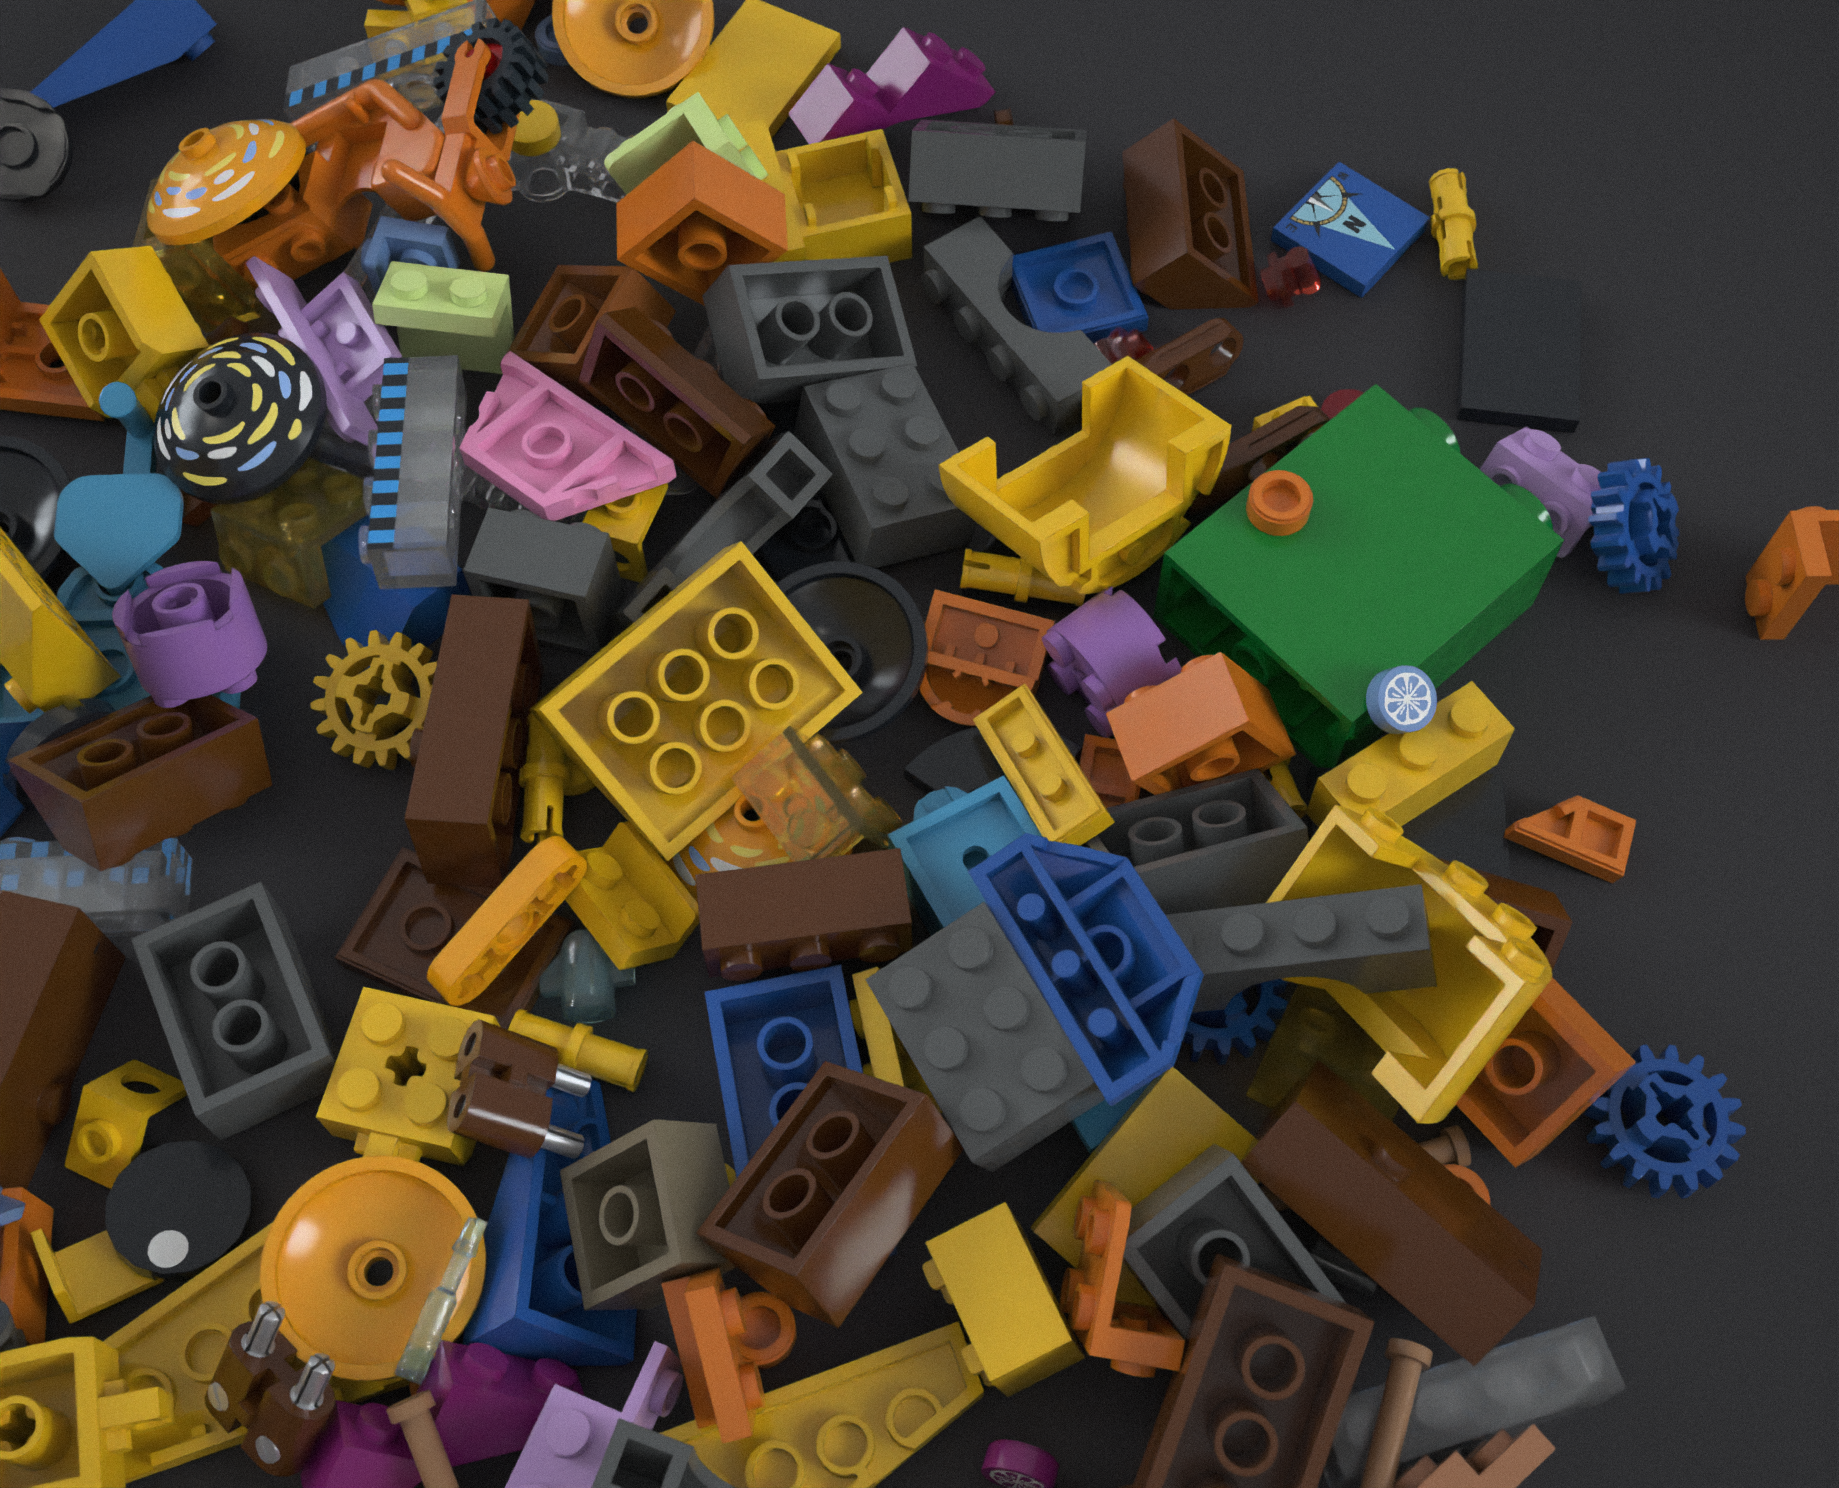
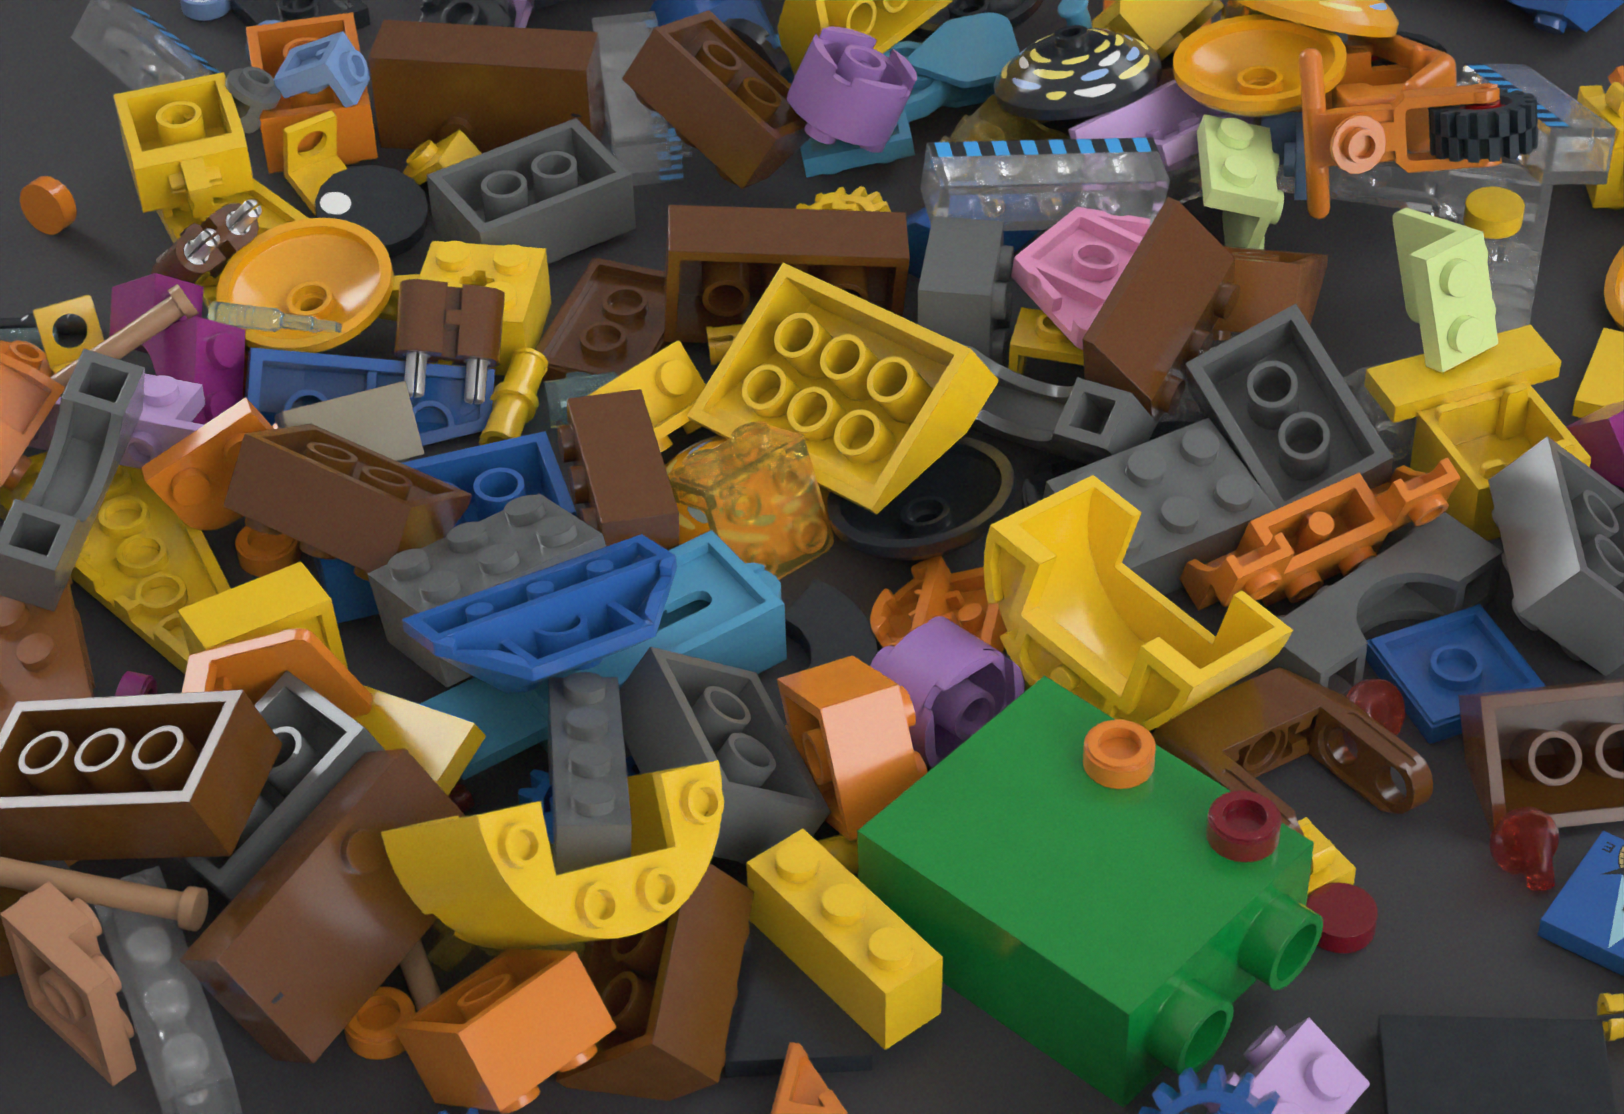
camera: 85 degrees right, 20 degrees down
(321, 240) = (1253, 64): none -> light orange dish
(506, 920) = (628, 307): light orange beam -> none
(698, 220) = (1358, 290): orange brick -> none
(966, 386) = (1319, 537): none -> orange bracket
(1042, 769) = (798, 638): yellow tile -> none
(1368, 424) = (1243, 826): none -> dark red tile
(1401, 699) = (886, 863): medium blue tile -> none

